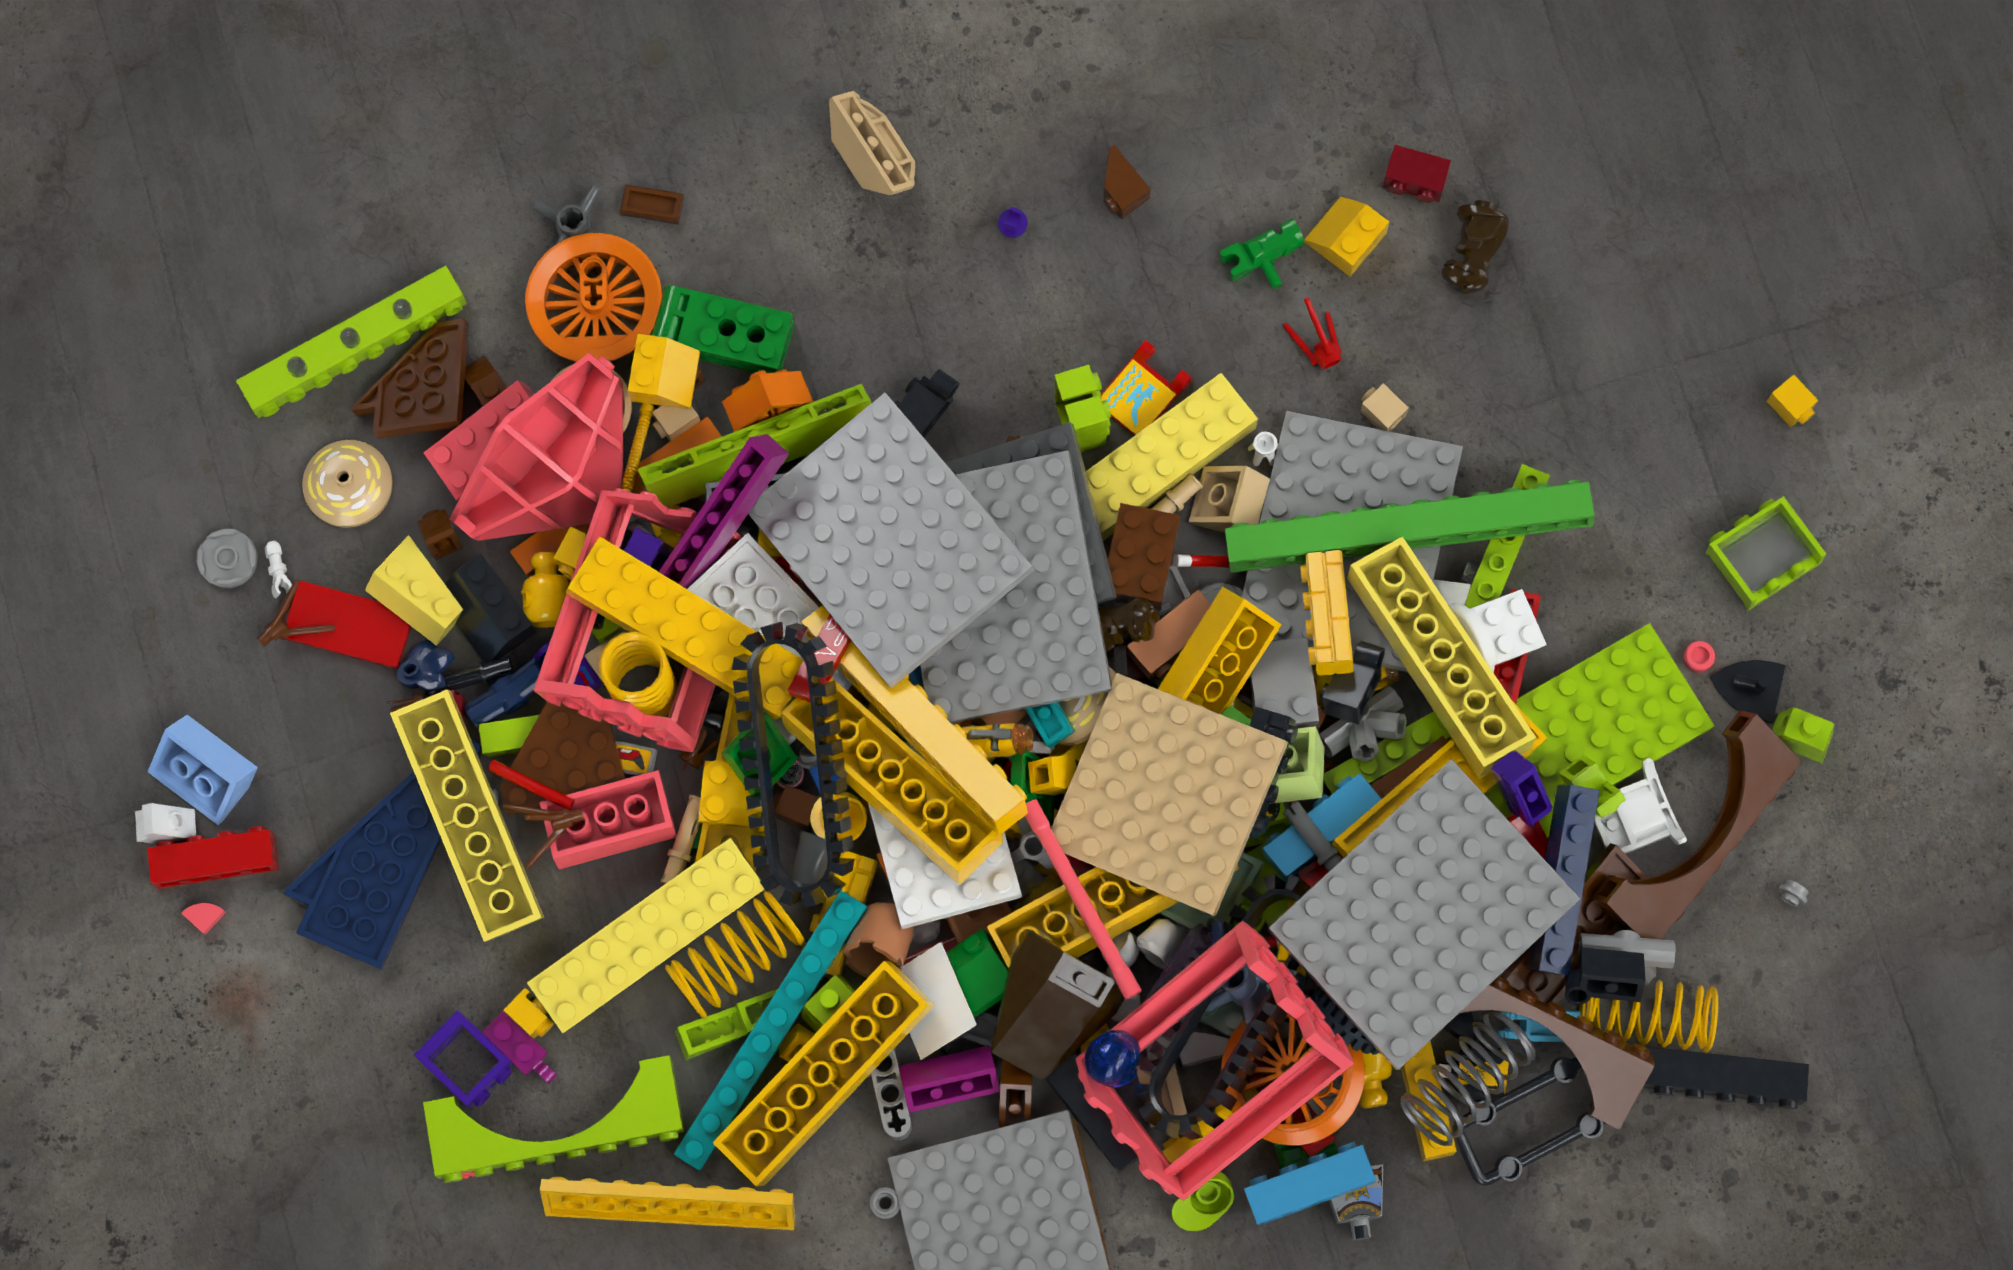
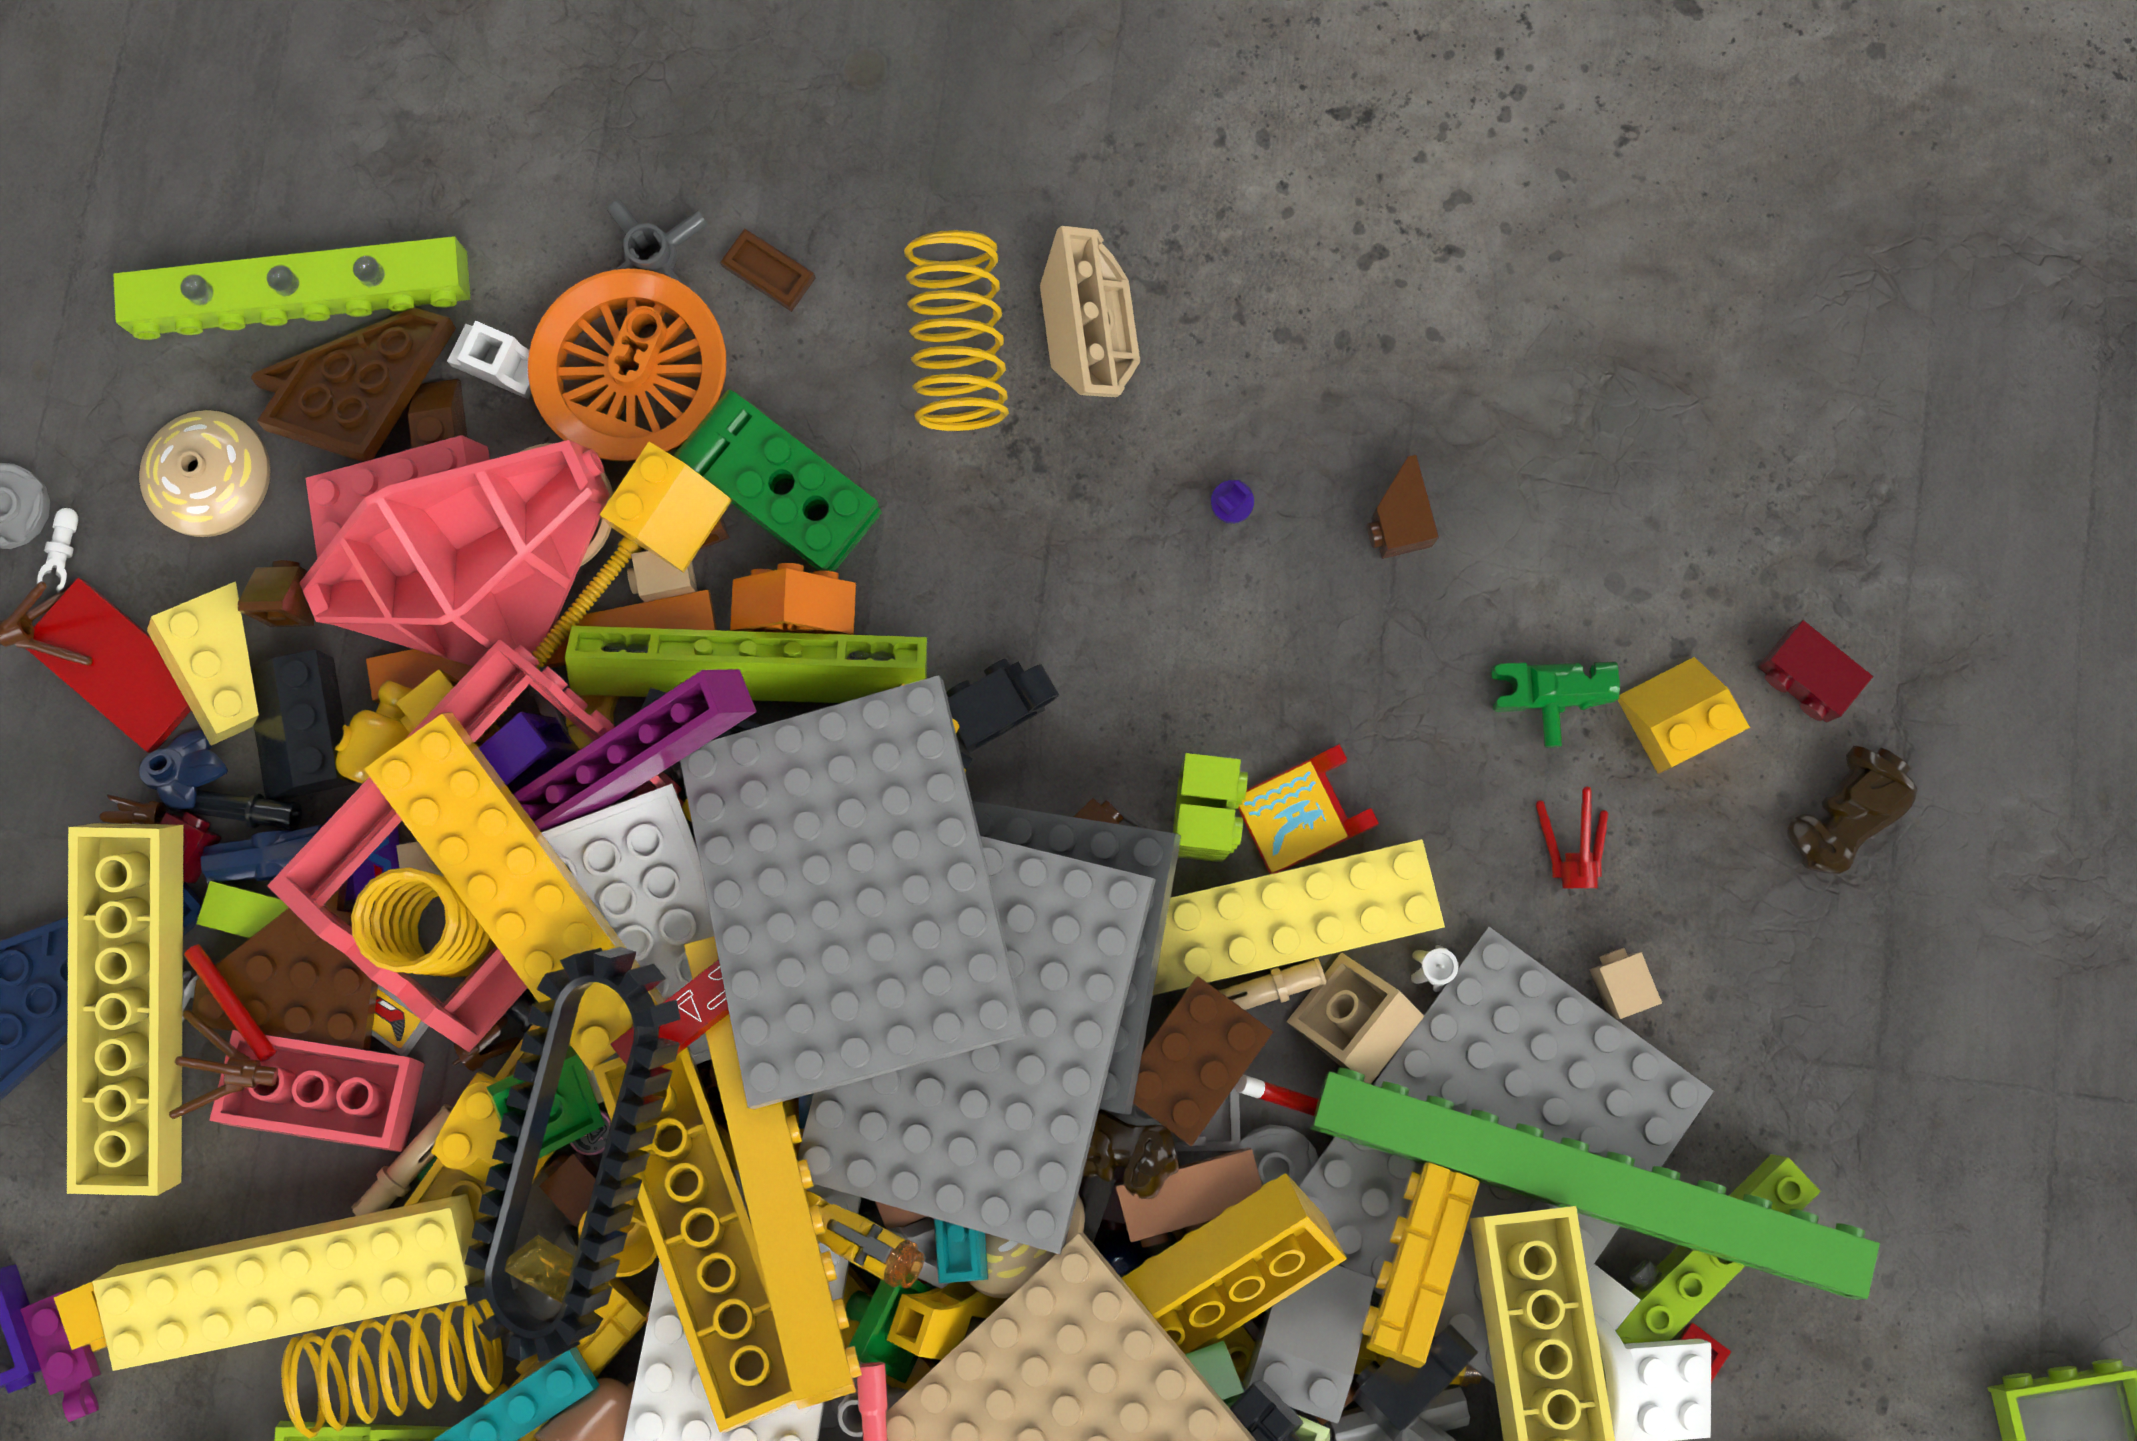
camera: 25 degrees right, 5 degrees up
(504, 331) = (492, 358): none -> white brick
(806, 848) = (542, 1267): none -> clear yellow plate
(811, 249) = (947, 422): none -> yellow piece

